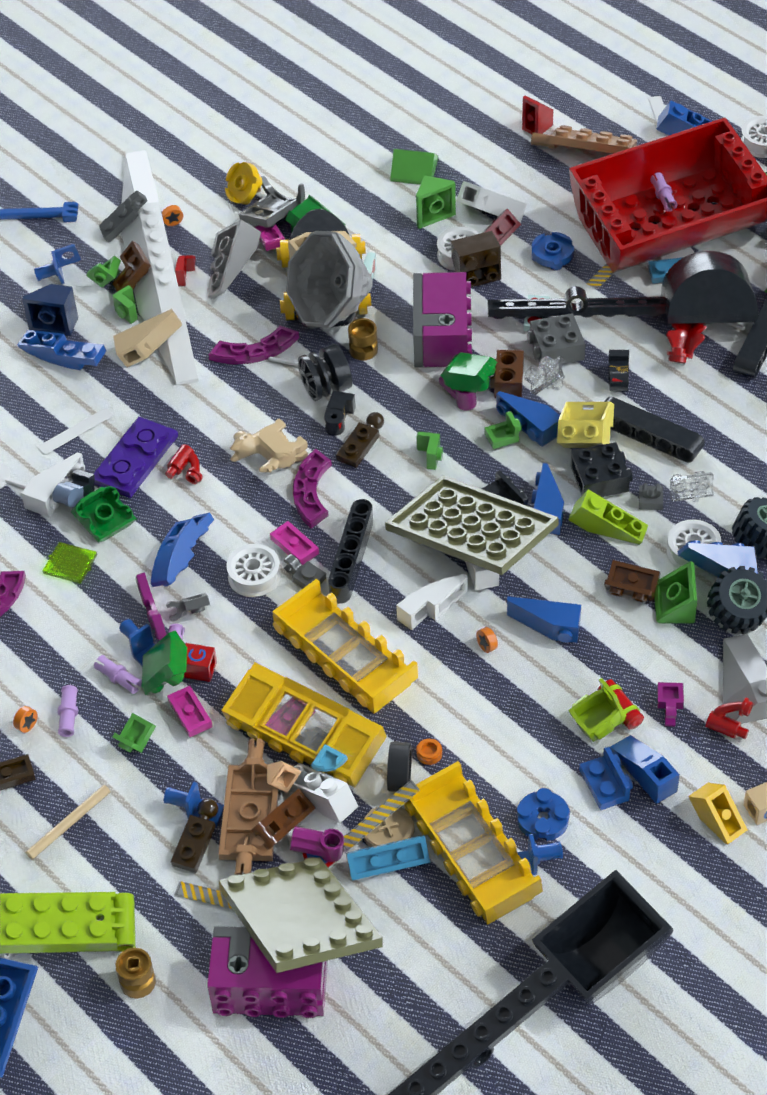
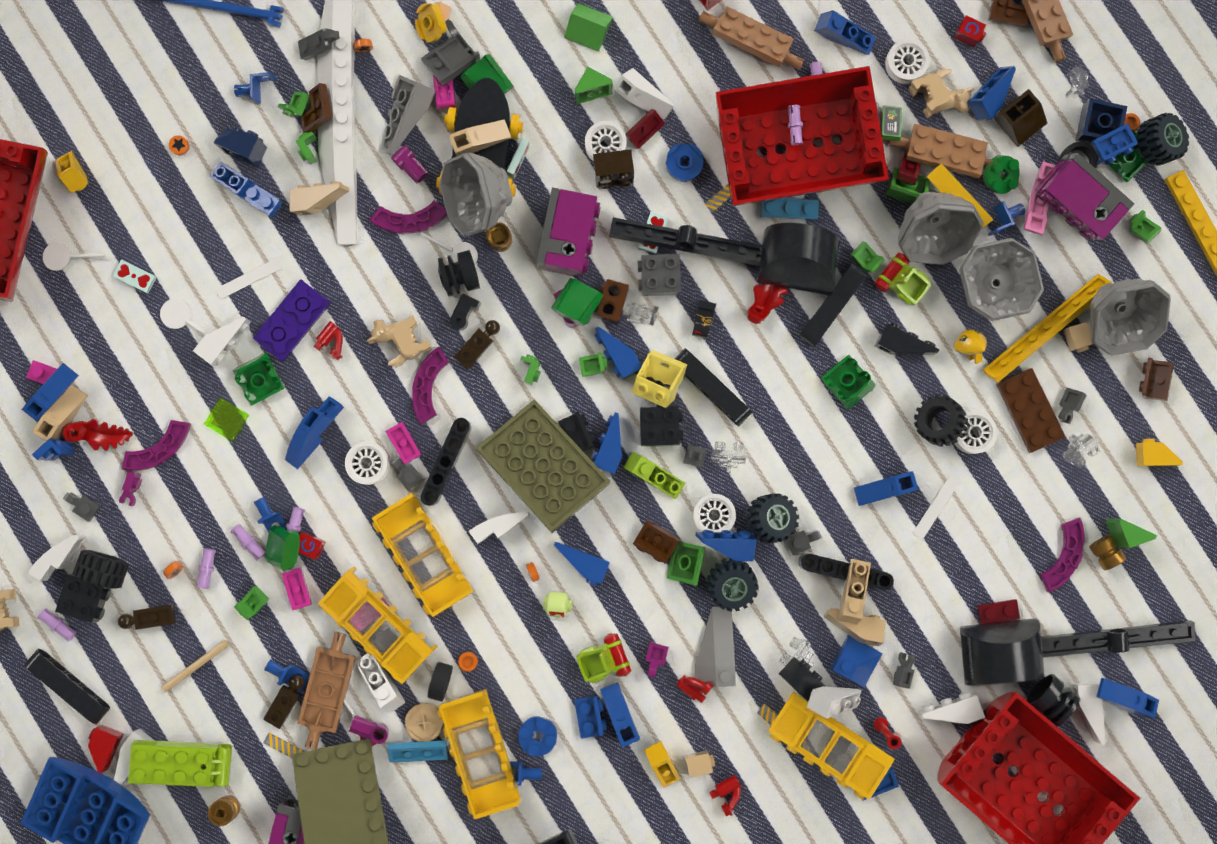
camera: 10 degrees right, 35 degrees up
(76, 488) = (236, 354): leg -> none
(152, 613) = (282, 501): magenta tile -> none
(184, 264) = (367, 105): red slope -> none
(194, 603) = (313, 487): dark grey plate -> none
(240, 297) = (406, 161): none -> magenta piece
(282, 775) = (352, 669): light nougat slope -> none
(284, 818) = (347, 707): reddish brown plate -> none
(328, 759) = (388, 668): medium azure tile -> none
(380, 815) = (418, 717): sticker -> none
(528, 664) = (557, 604): none -> yellowish green head

